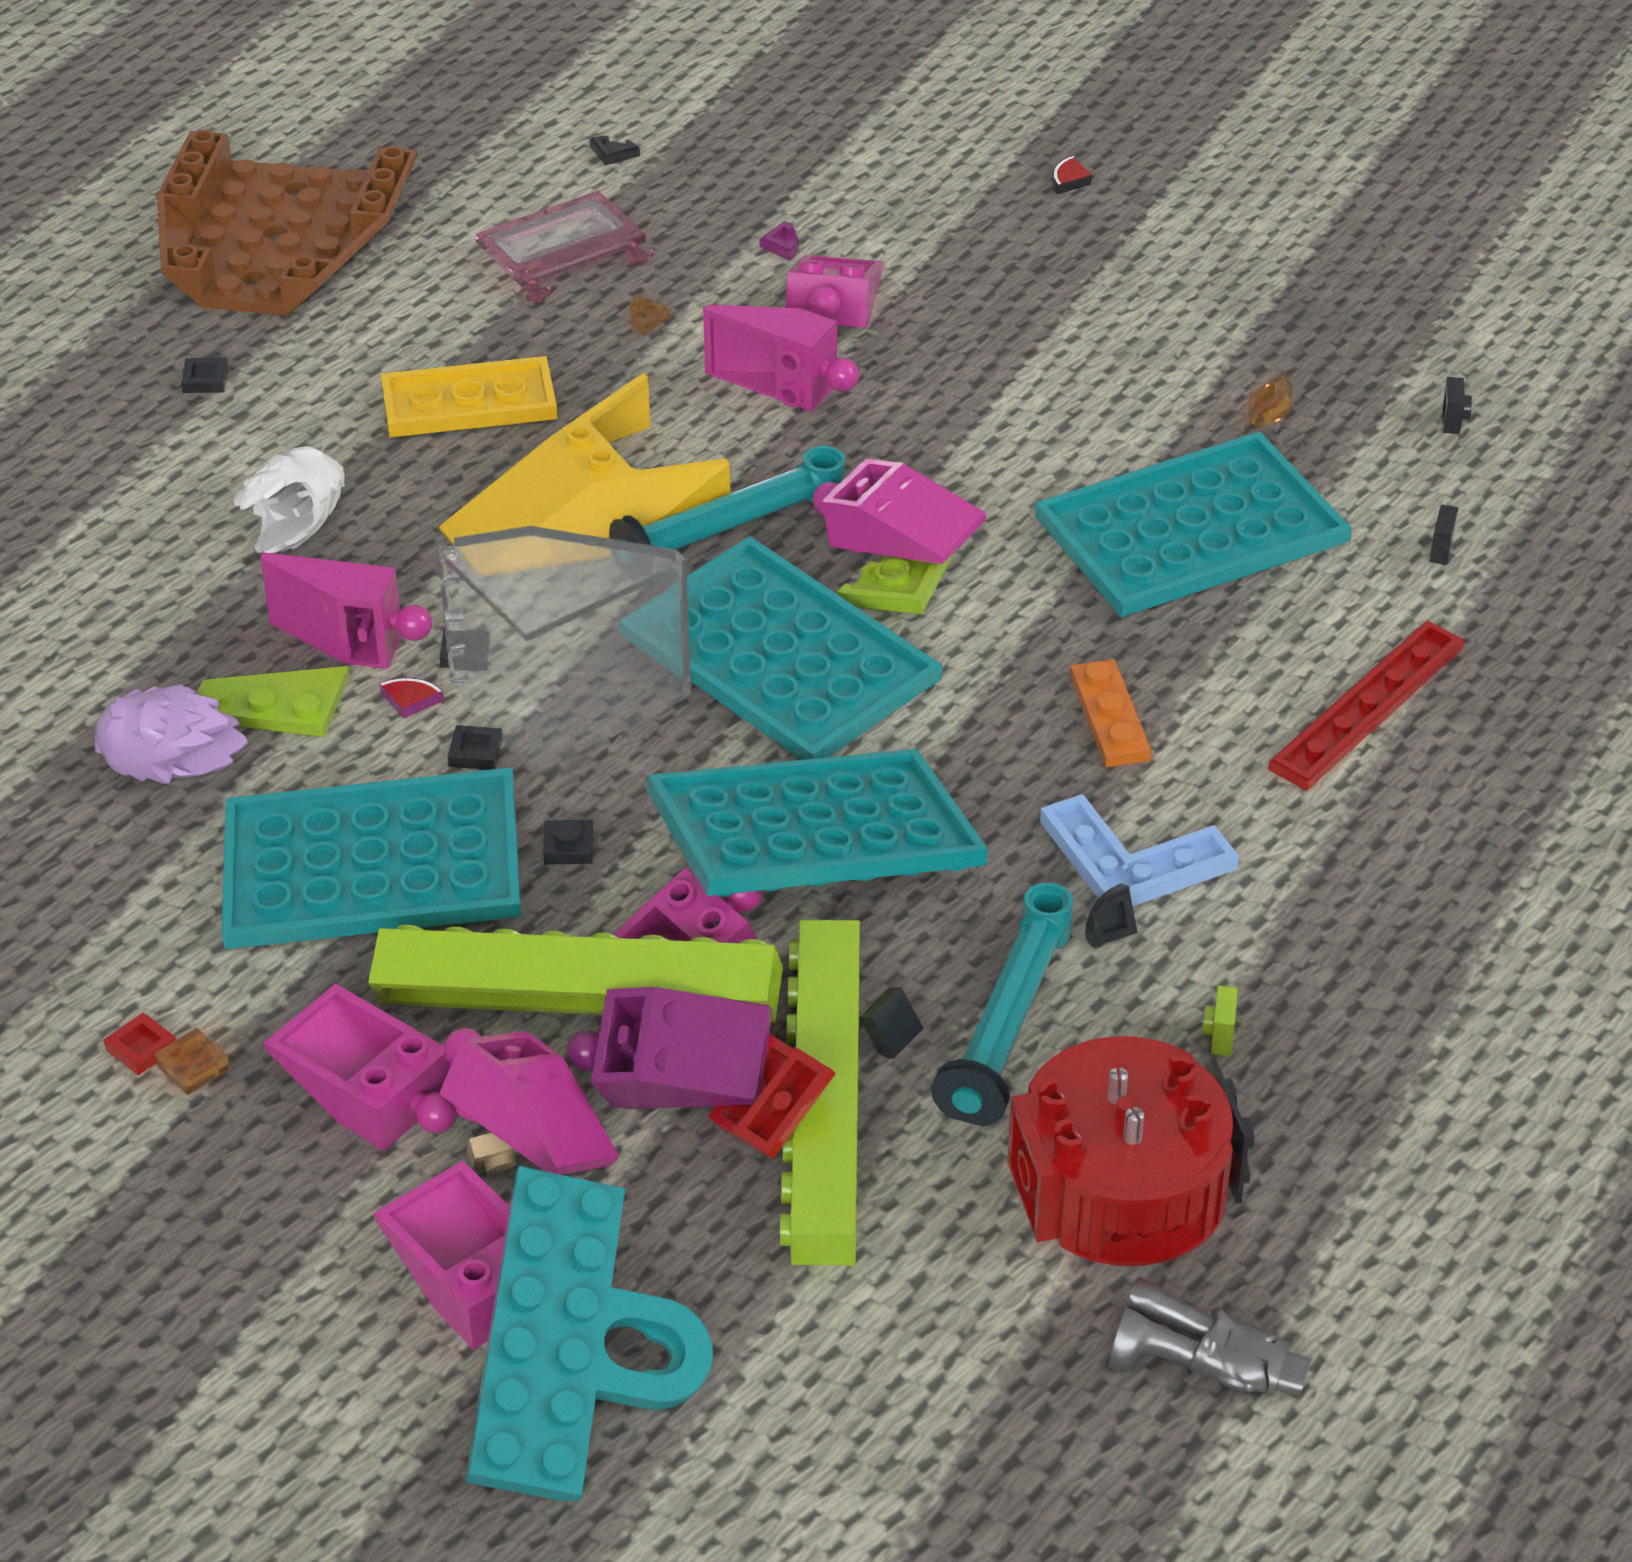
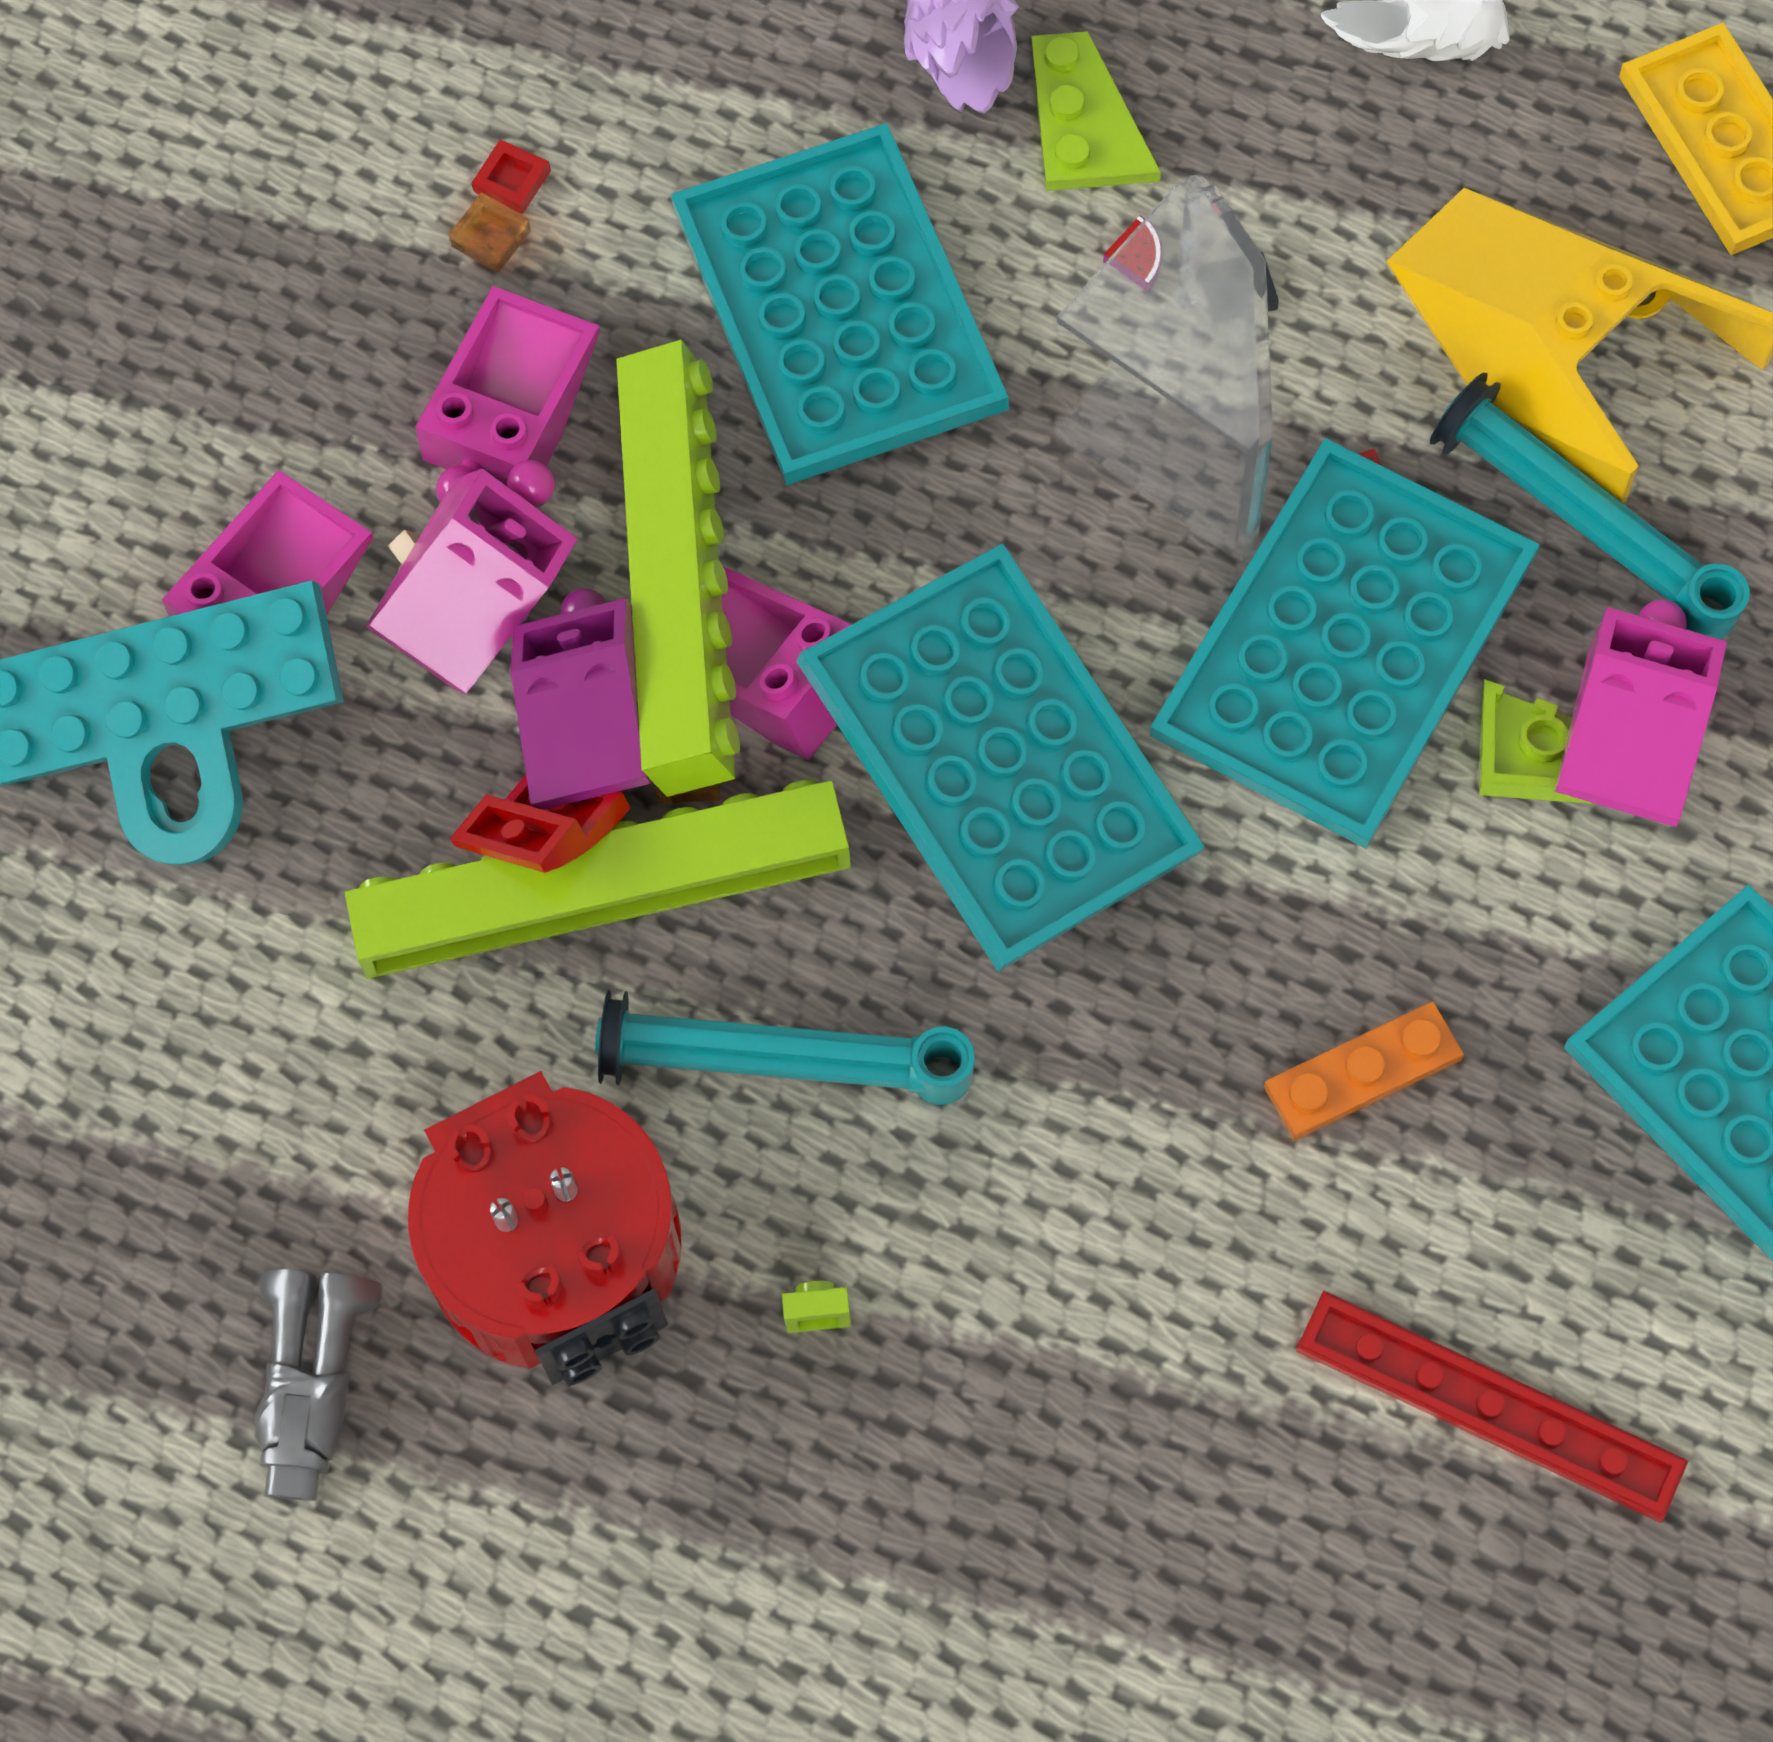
camera: 80 degrees right, 25 degrees up
(341, 607) = (1222, 122): dark pink slope -> none
(475, 747) = (1065, 356): black tile -> none
(568, 842) = (936, 500): black plate -> none
(891, 1022) = (718, 926): black tile -> none
(1111, 917) = (966, 1144): black tile -> none
(1148, 873) = (1047, 1155): light blue plate -> none

